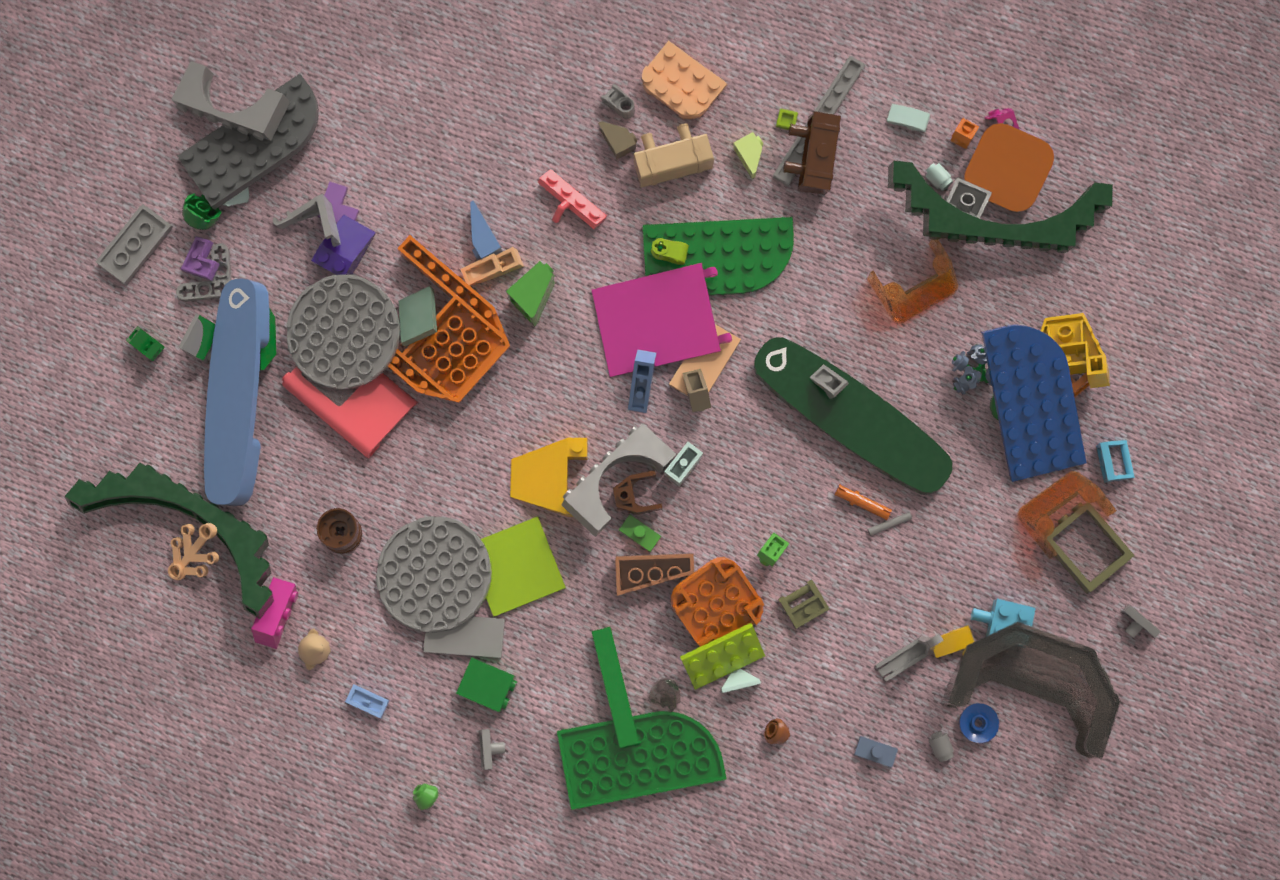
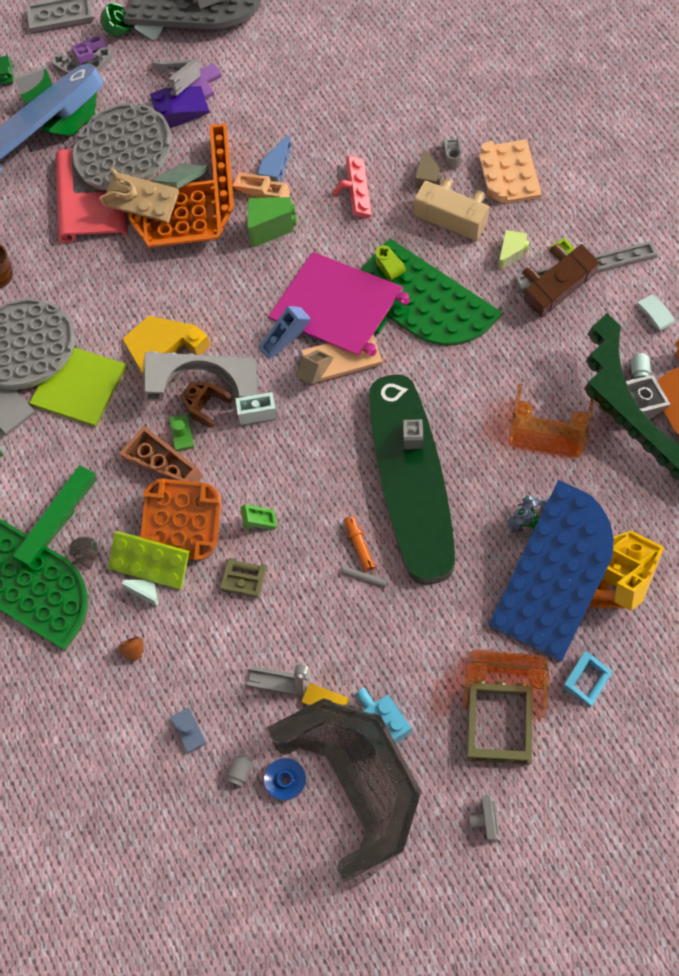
camera: 45 degrees right, 15 degrees down
(411, 365) = (140, 197): none -> tan plate

